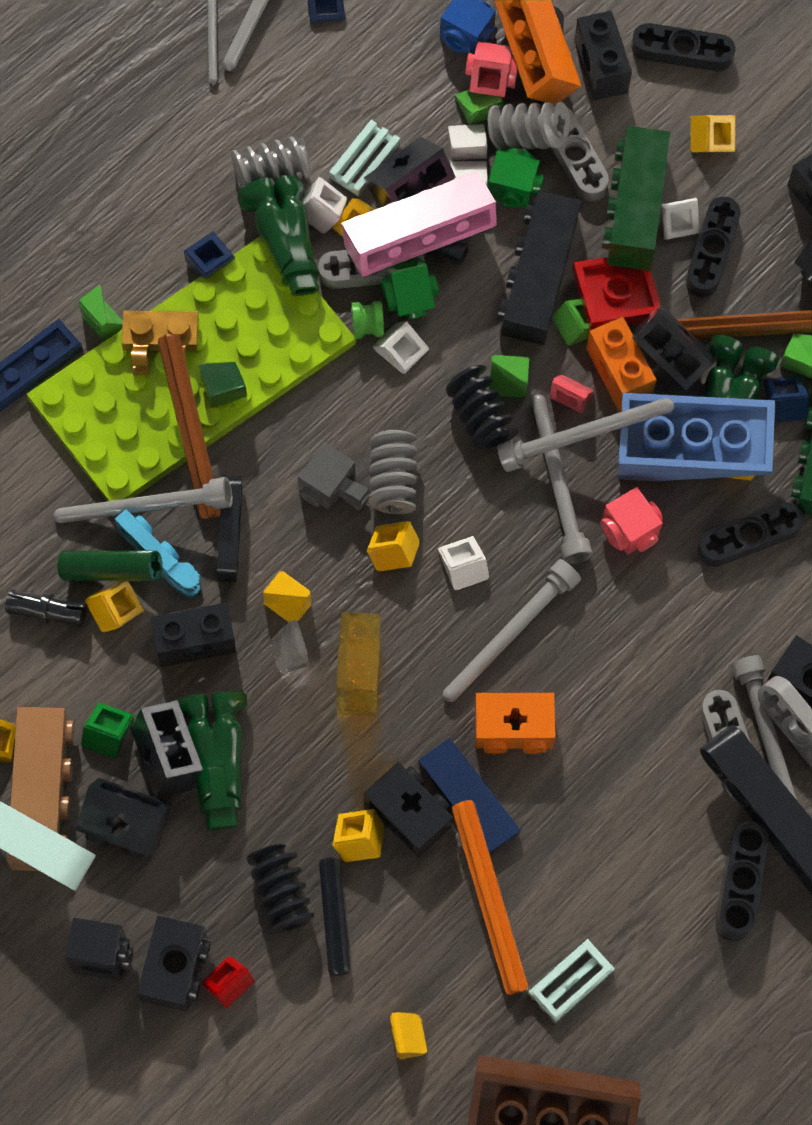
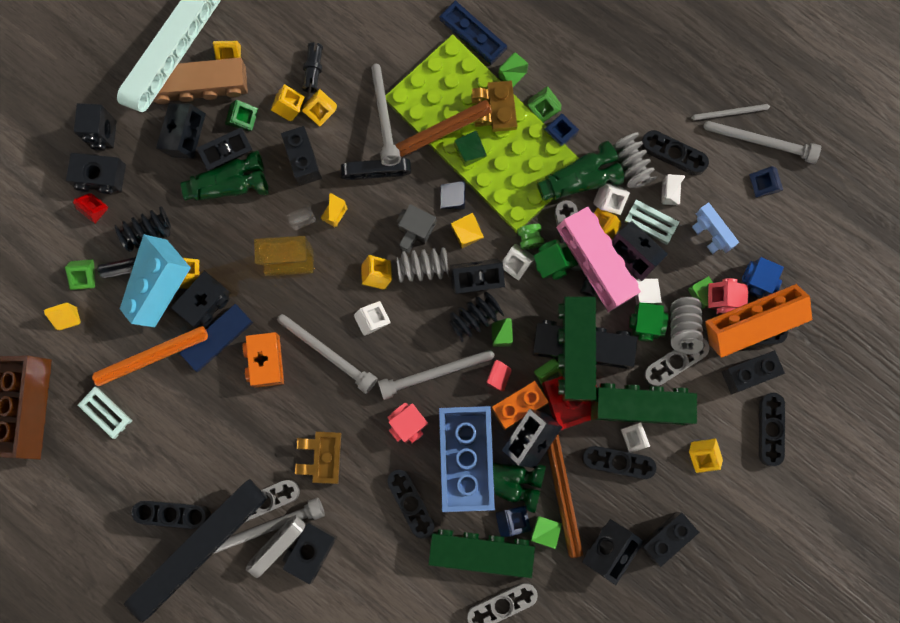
camera: 90 degrees right, 10 degrees up
(98, 653) = (287, 103): none -> yellow slope
(109, 565) = (339, 98): dark green piece -> none
(138, 535) = (353, 128): medium azure hinge -> none
(161, 278) = (544, 104): none -> bright green slope
(265, 97) = (671, 142): none -> black beam
(287, 422) = (453, 195): none -> slope
(319, 123) = (671, 189): none -> white slope
(338, 1005) = (80, 274): none -> bright green slope
(345, 410) = (467, 230): none -> yellow slope
(373, 869) = (153, 281): none -> medium azure wedge
(396, 63) = (722, 236): none -> light blue plate
(421, 395) = (477, 276): none -> black brick
(467, 142) = (674, 287): white slope -> none
(514, 454) = (447, 342): light grey piece -> none
(551, 263) = (579, 349): none -> dark green brick
(672, 645) = (326, 457): none -> pearl gold plate

